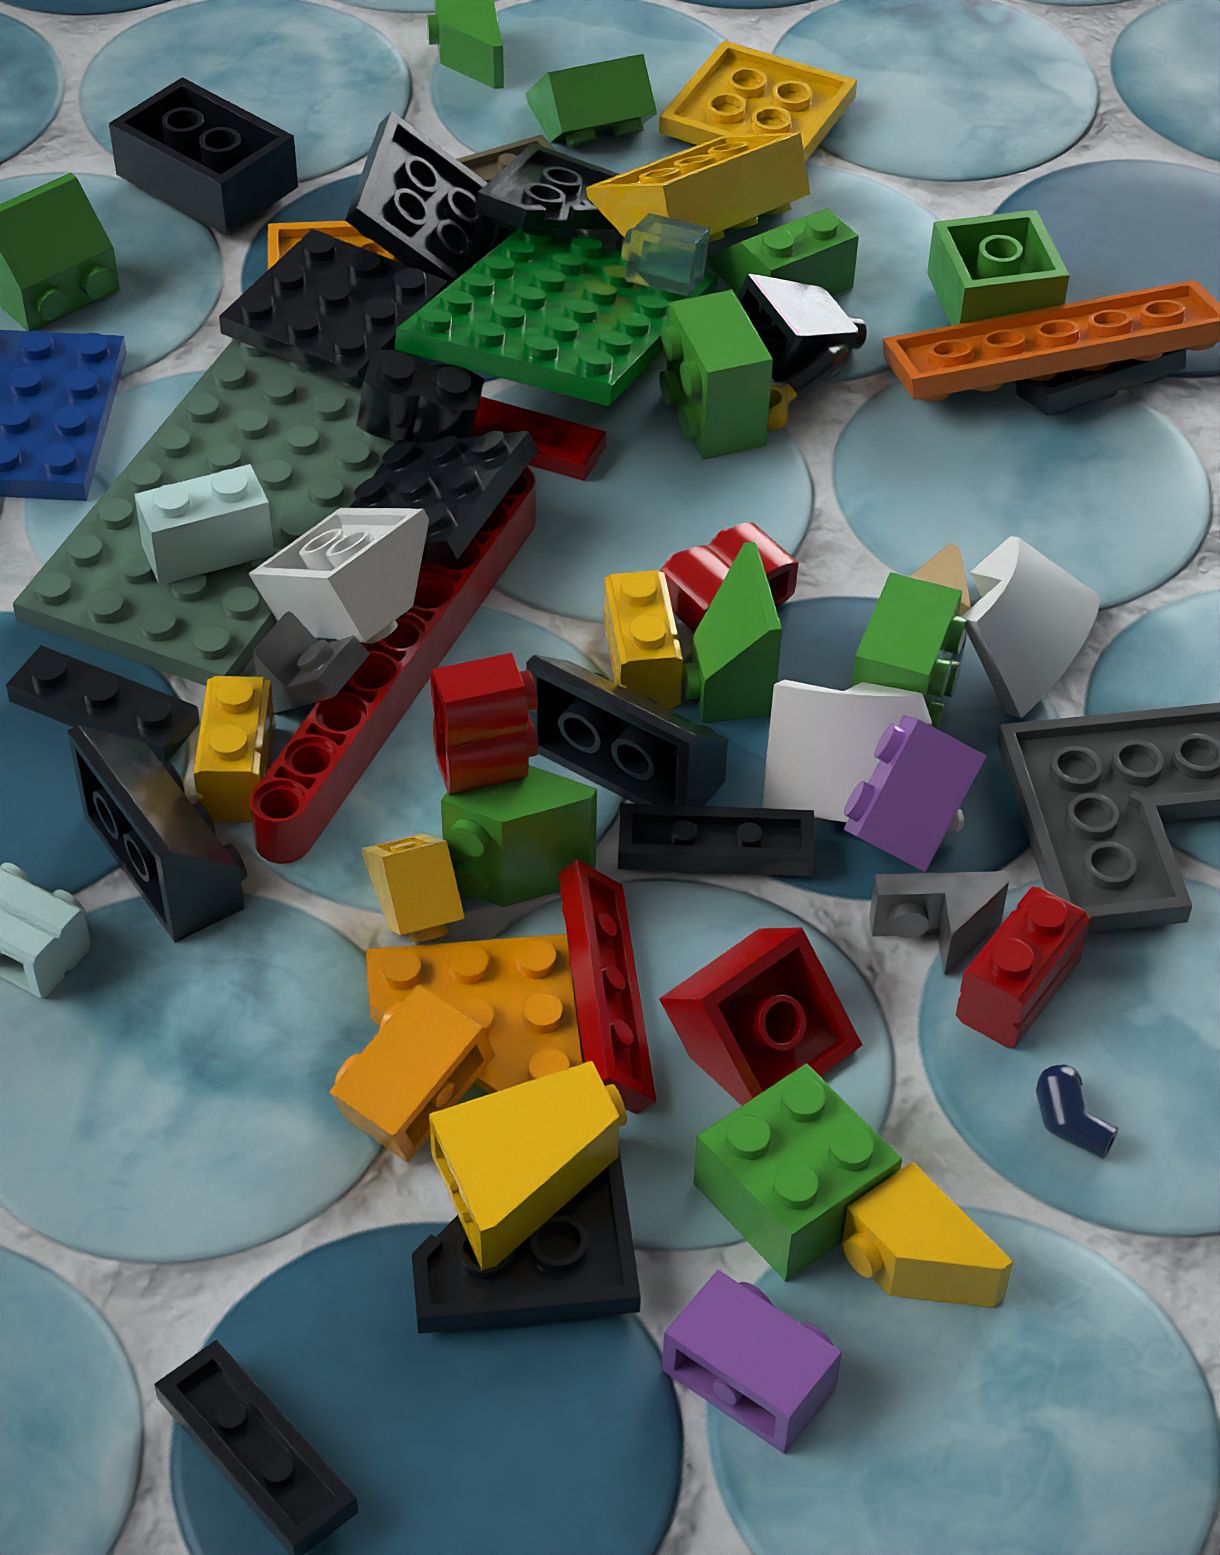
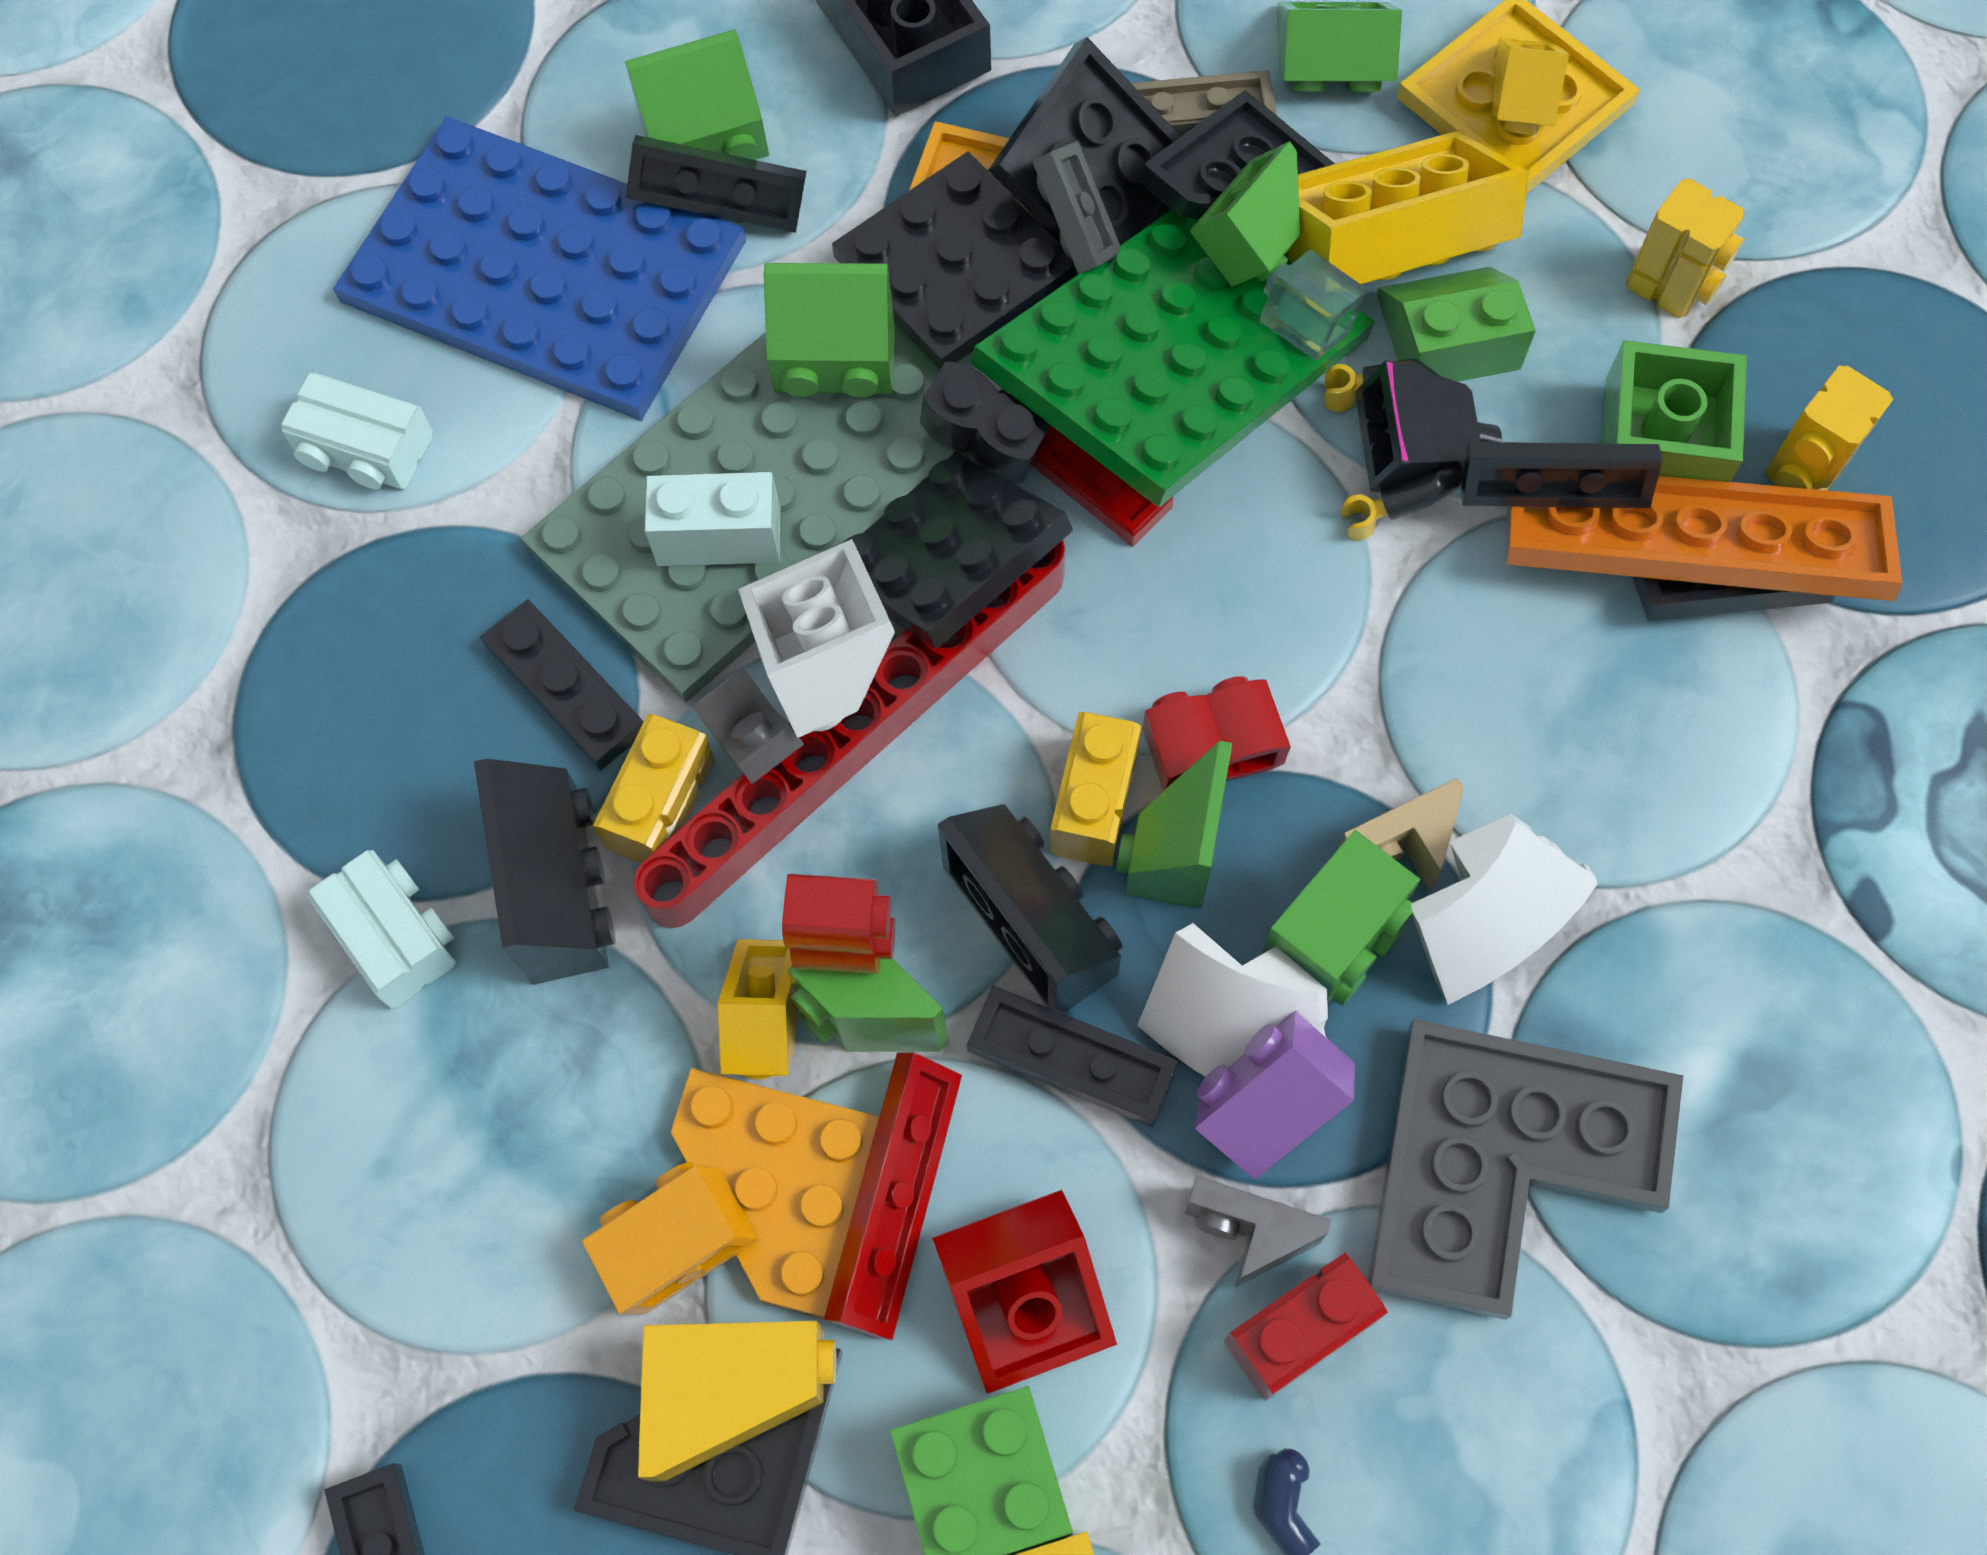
camera: 25 degrees right, 20 degrees up
(88, 303) = (715, 183): none -> black plate
(251, 360) = (829, 328): none -> bright green slope
(420, 215) = (1077, 207): none -> dark grey plate
(591, 206) = (1254, 218): none -> bright green slope
(716, 374) = (1304, 473): bright green brick -> none
(768, 82) = (1528, 84): none -> yellow slope
(928, 320) = (1560, 474): none -> black plate
(949, 162) = (1686, 248): none -> yellow brick
(1126, 242) = (1829, 431): none -> yellow brick

